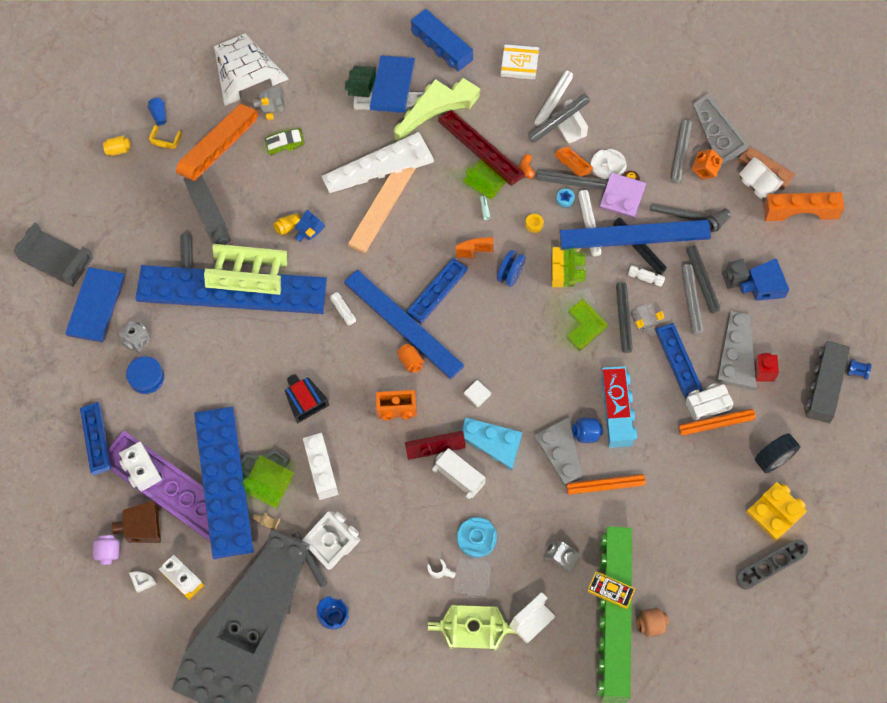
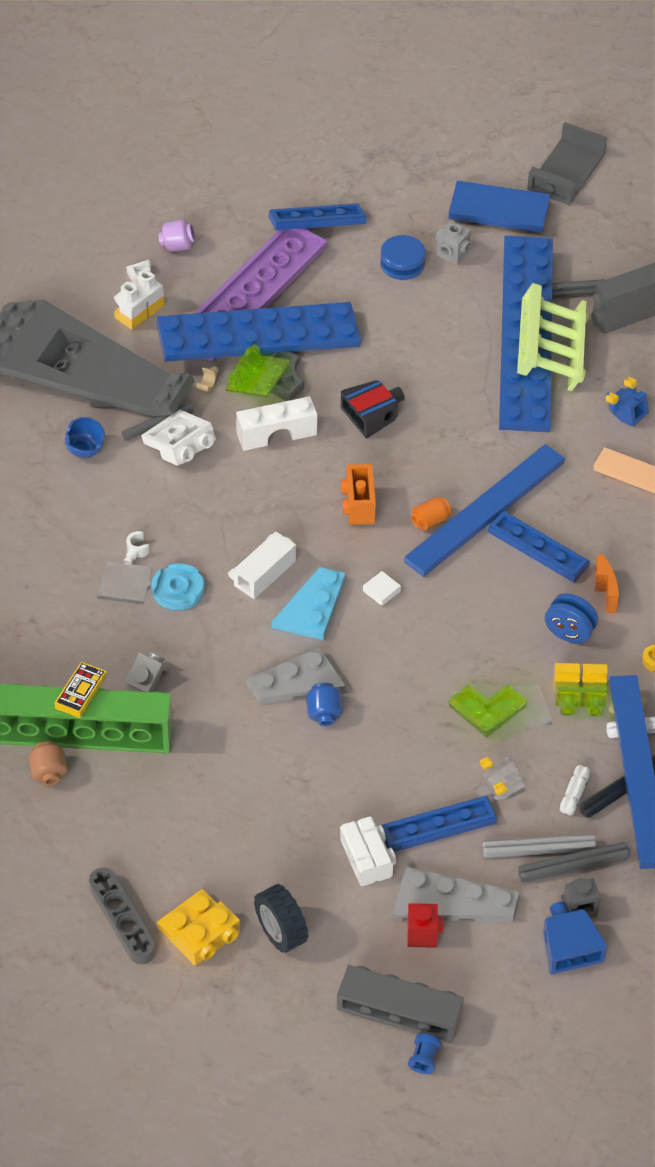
camera: 85 degrees right, 15 degrees down
(140, 467) = (275, 251): white brick -> none
(140, 524) = (207, 264): reddish brown torso -> none
(284, 224) = (622, 374): yellow cone -> none
(343, 309) = (505, 445): white axle -> none
(435, 445) = (304, 538): dark red plate -> none
(458, 635) = (57, 595): yellowish green plate -> none
(532, 619) = (63, 635): white panel -> none
(606, 484) = (247, 727): orange axle -> none
(617, 407) = (360, 740): brick -> none
(624, 317) = (521, 759): dark grey axle -> none
(717, 422) = (339, 864): orange axle -> none

